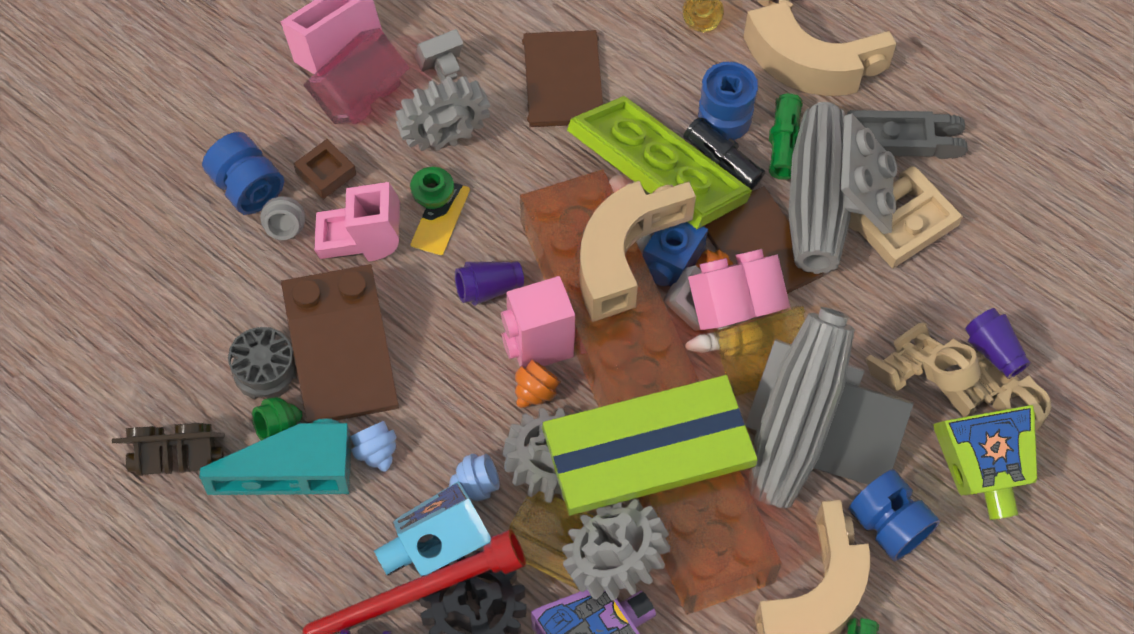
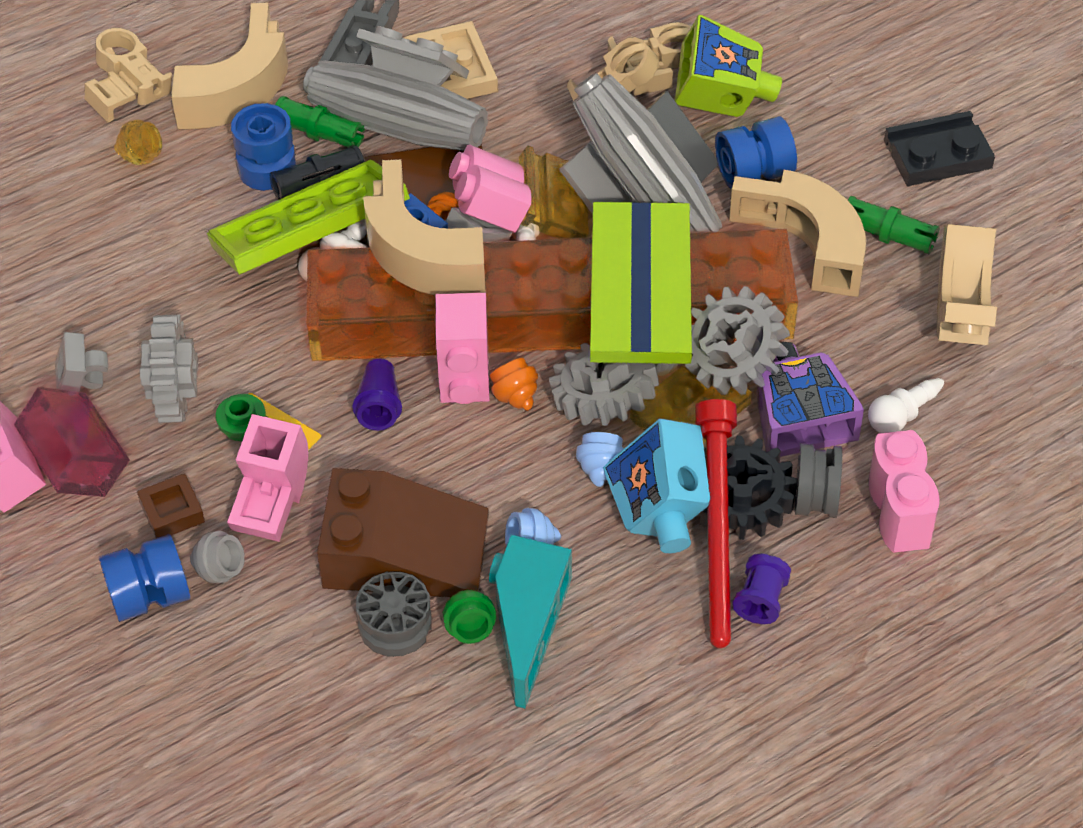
camera: 70 degrees left, 10 degrees down
(148, 443) = (471, 712): dark brown hinge -> none
(561, 76) = (152, 280): reddish brown piece -> none
(997, 342) = (611, 27): dark purple cone -> none

